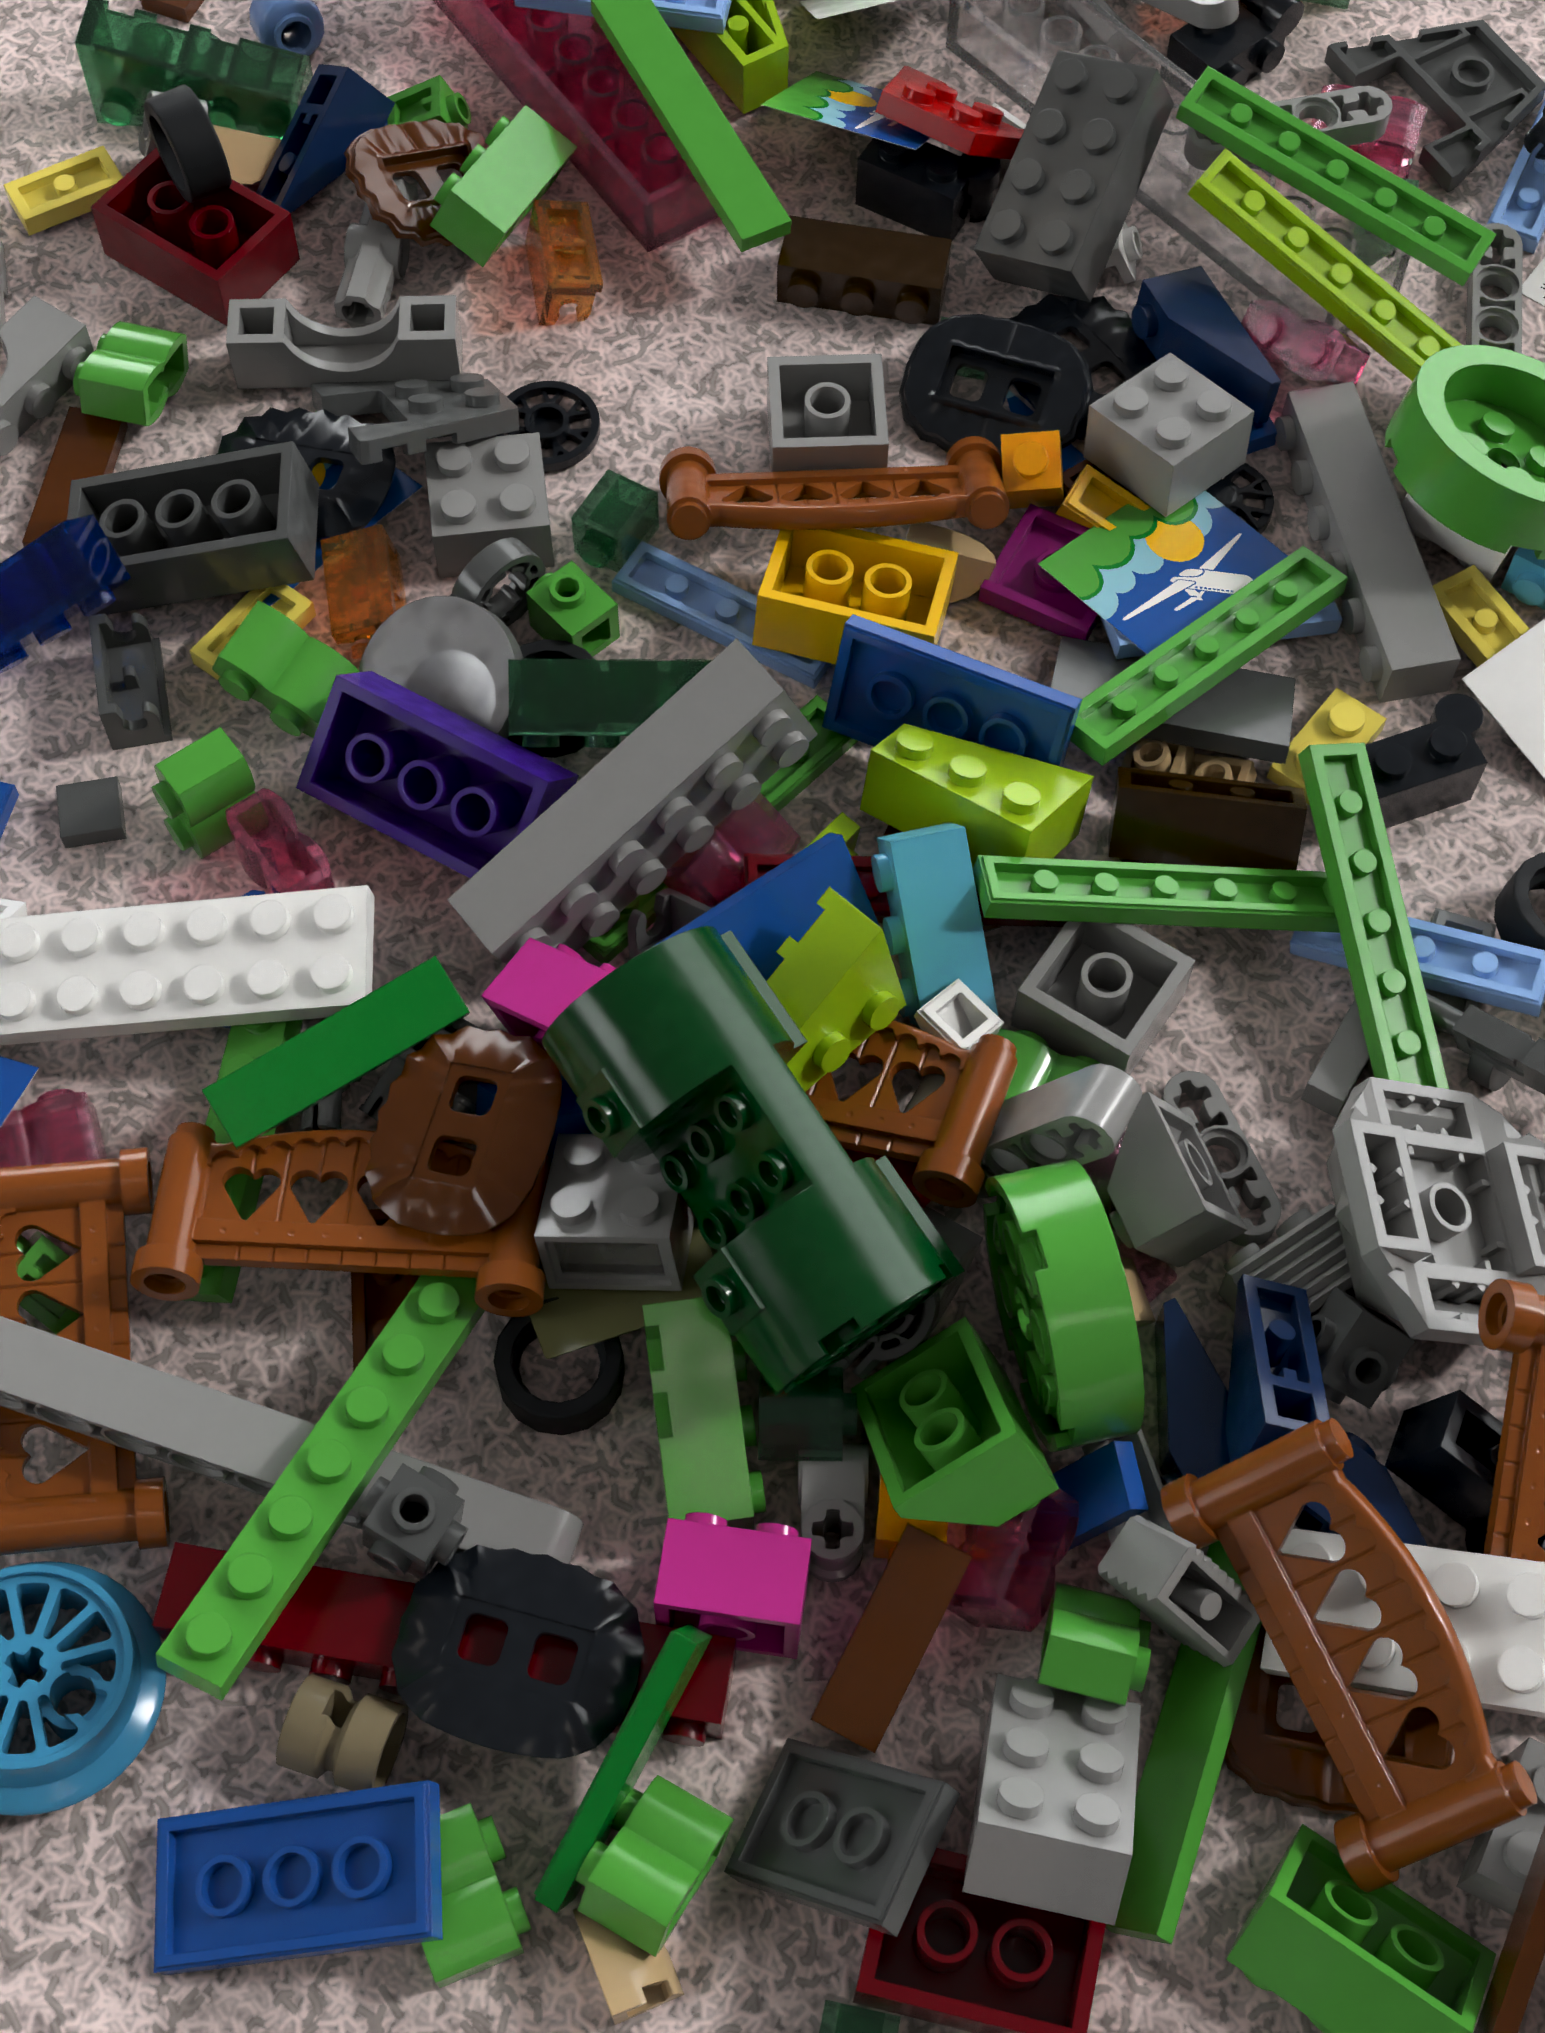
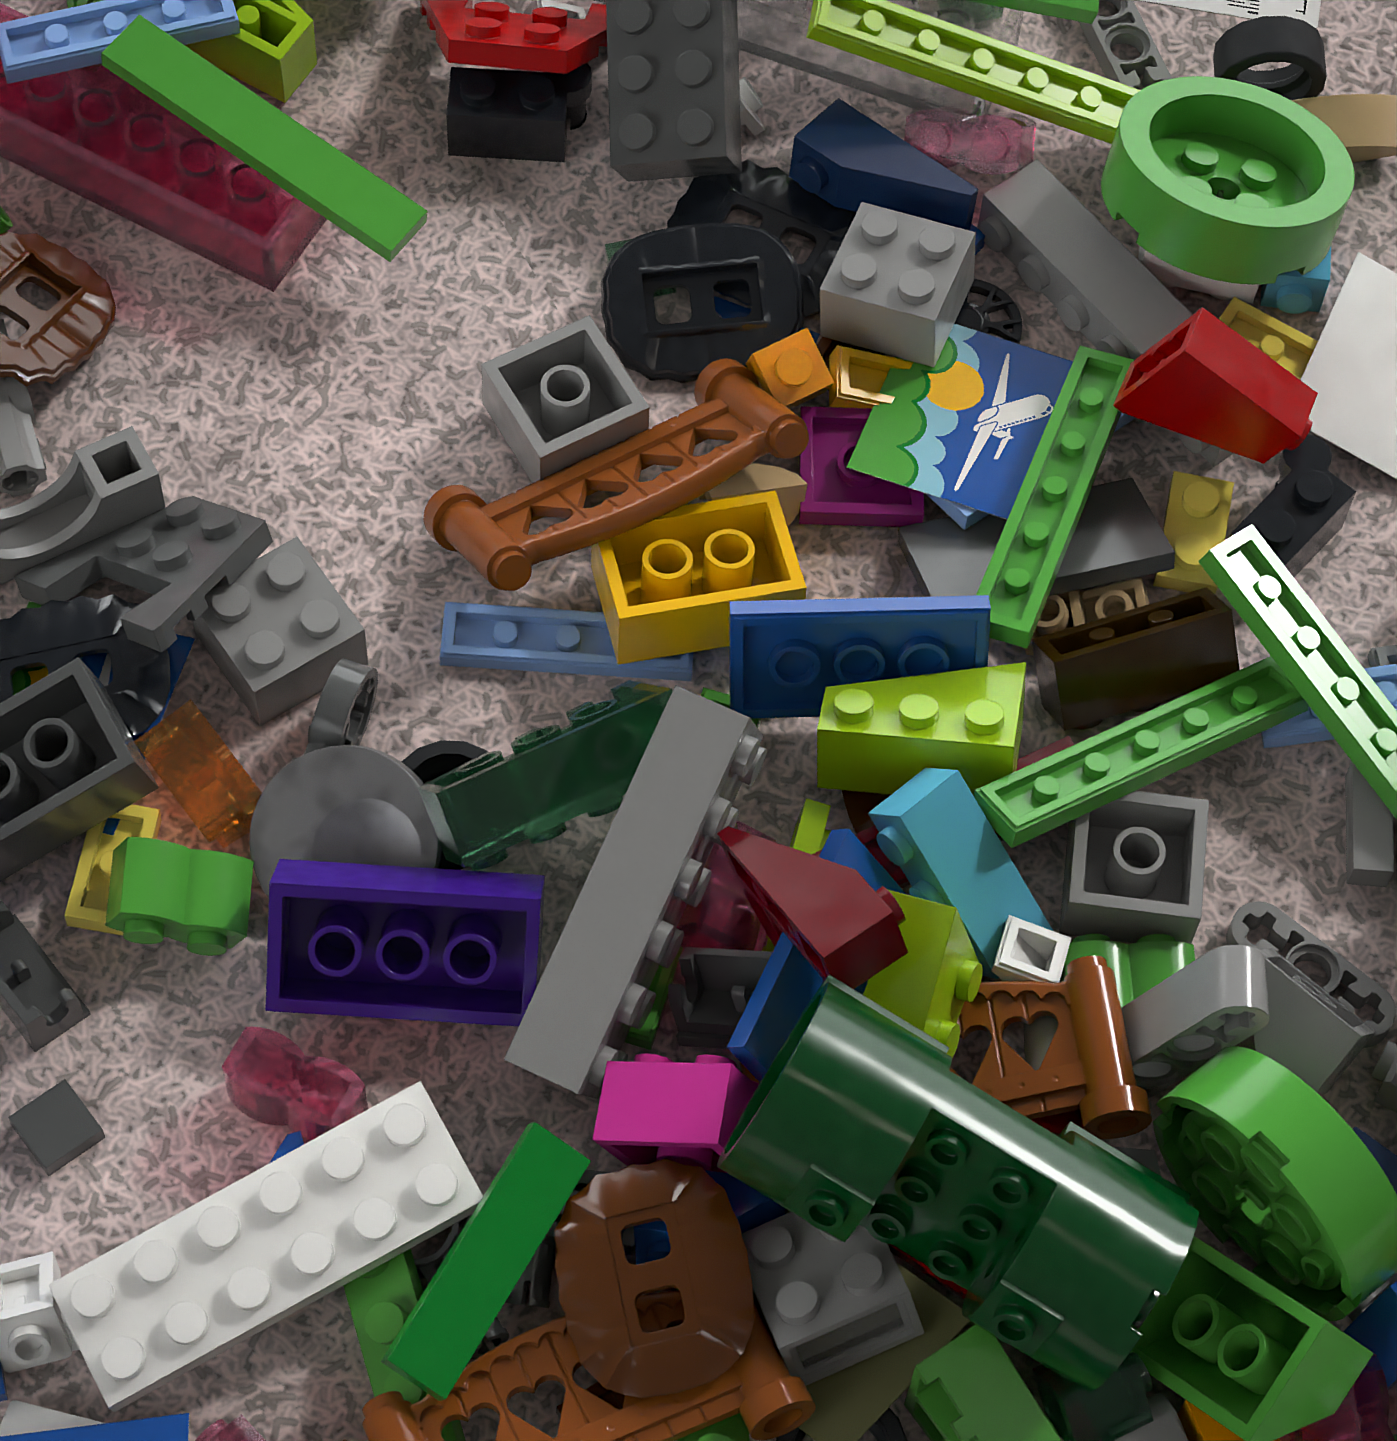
camera: 30 degrees left, 0 degrees up
(199, 787) = (184, 1057): bright green brick -> none
(500, 183) = (100, 284): bright green brick -> none
(554, 421) = (284, 512): black wheel -> none
(562, 258) = (199, 338): clear orange hinge -> none
(573, 609) = (423, 705): bright green brick -> none
(614, 521) = (412, 595): clear green brick -> none
(765, 881) = (820, 907): none -> dark red slope
(844, 106) = (401, 62): sticker -> none
(863, 270) = (508, 228): dark brown brick -> none
(1401, 622) = (1218, 391): none -> red slope

